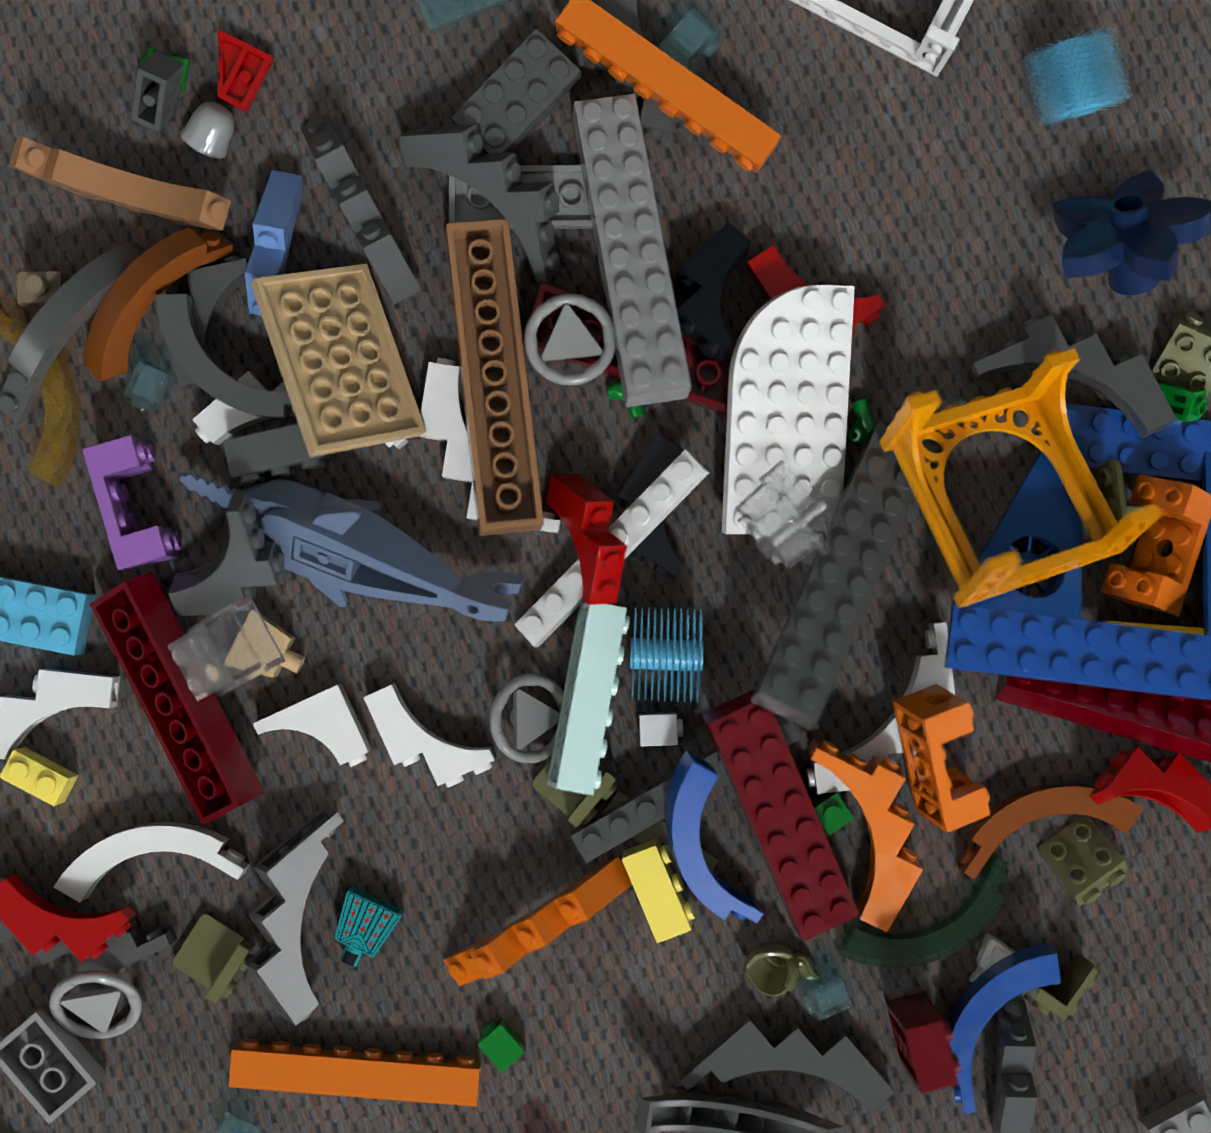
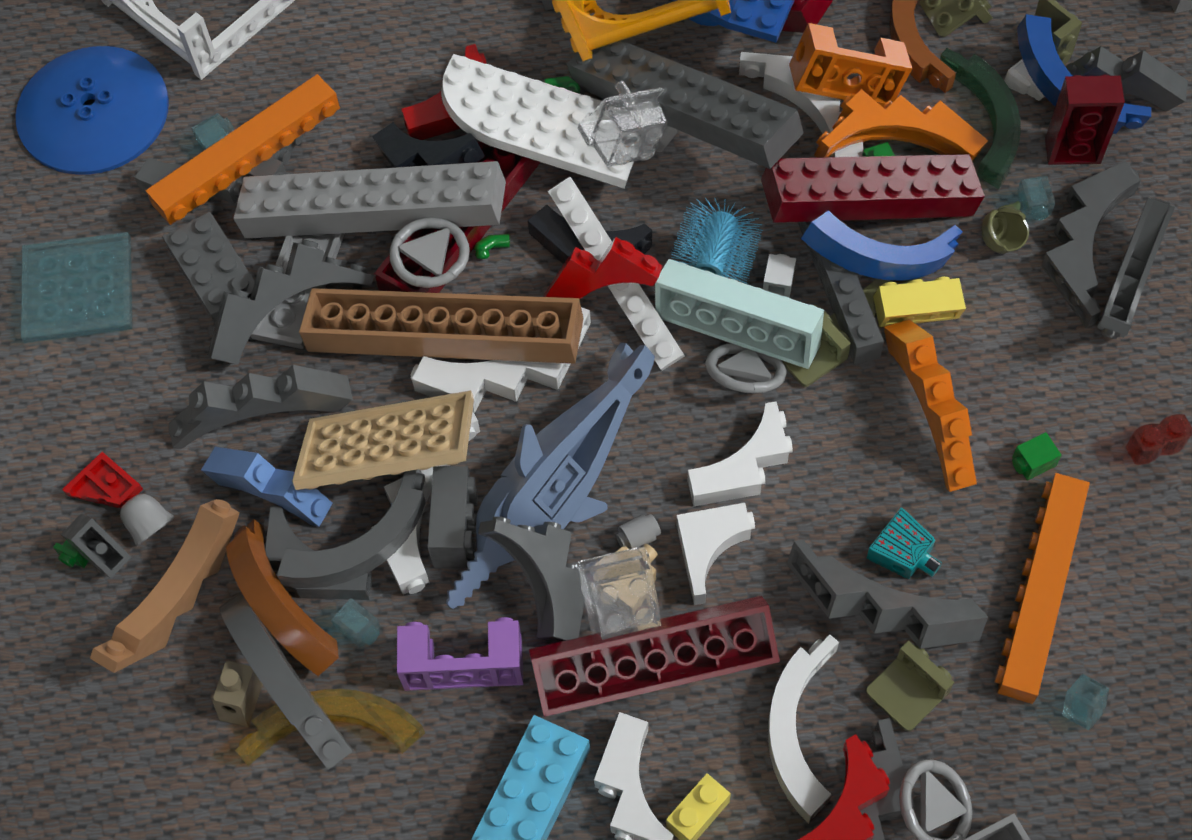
camera: 70 degrees left, 25 degrees down
(316, 647) = (638, 531): none -> light grey brick

